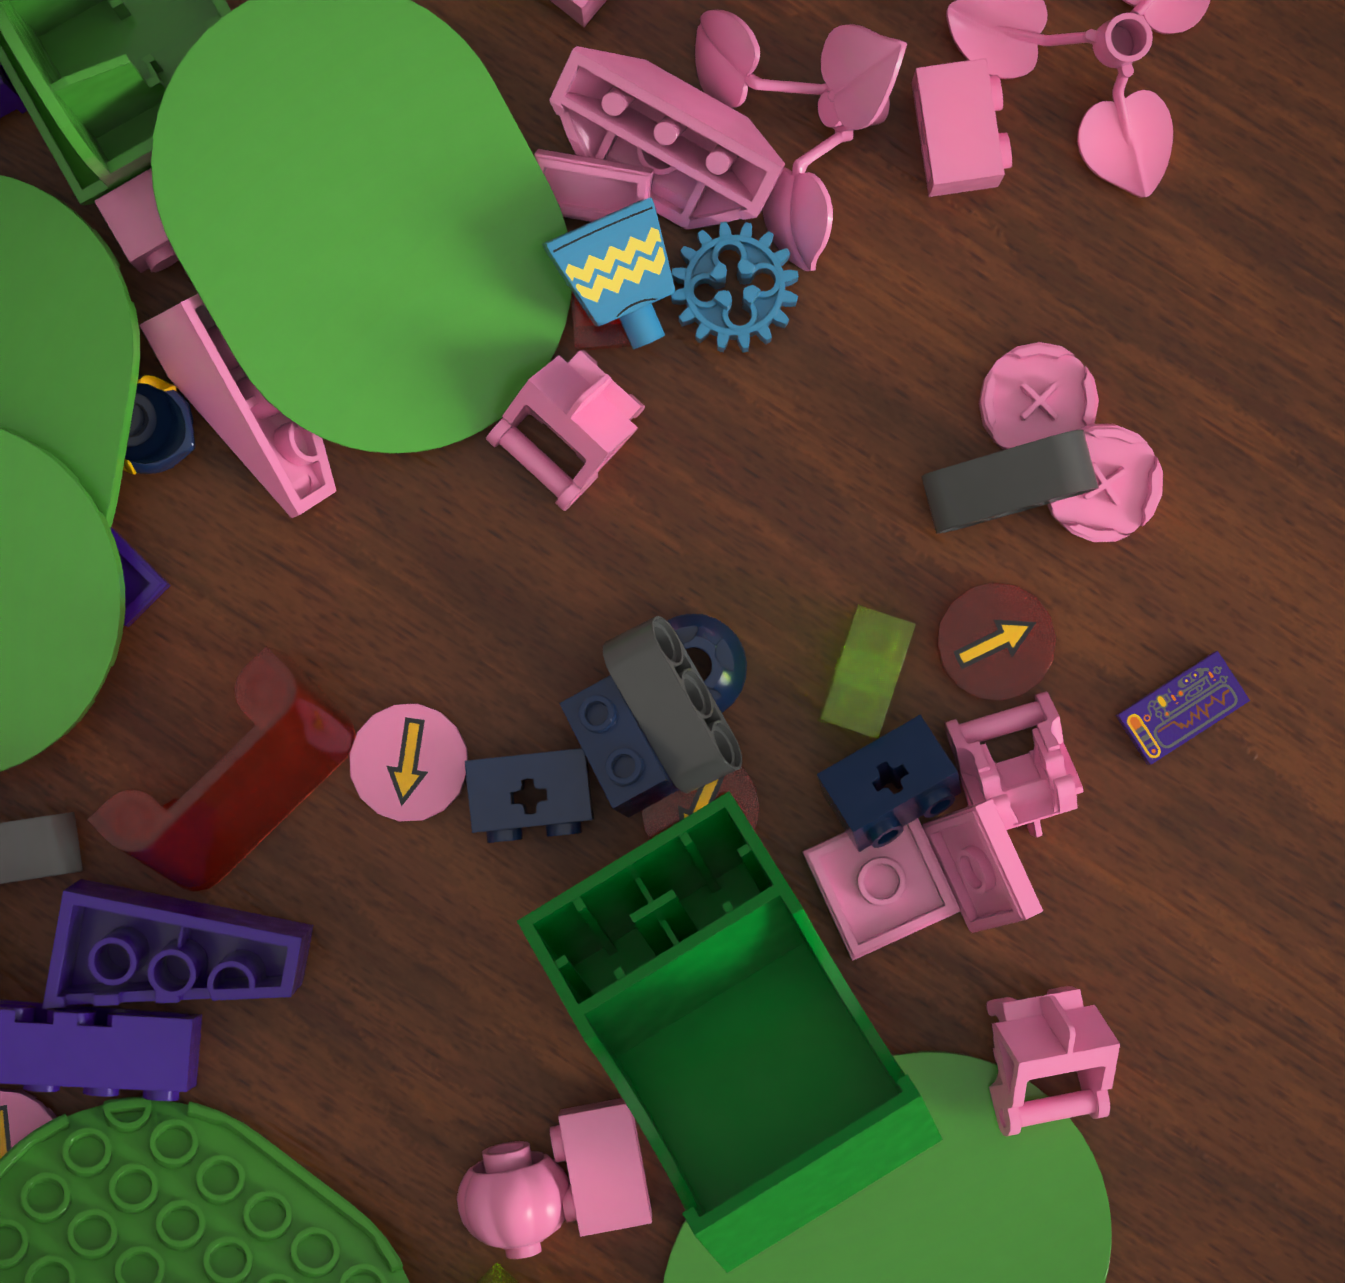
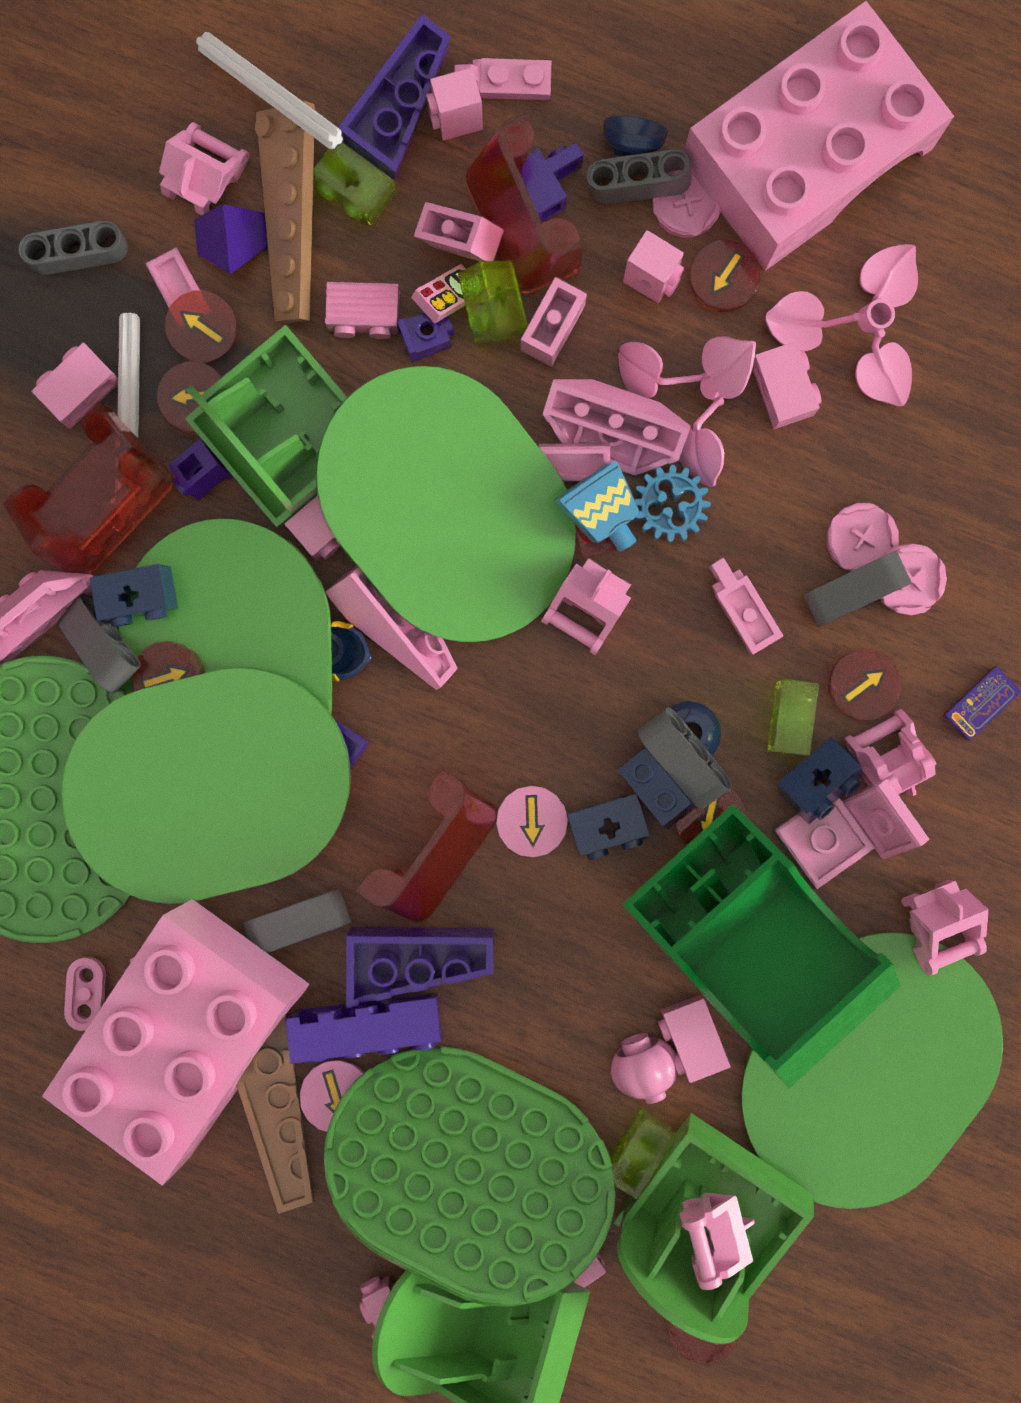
camera: 10 degrees left, 0 degrees up
(822, 479) = (744, 607): none -> bright pink hinge

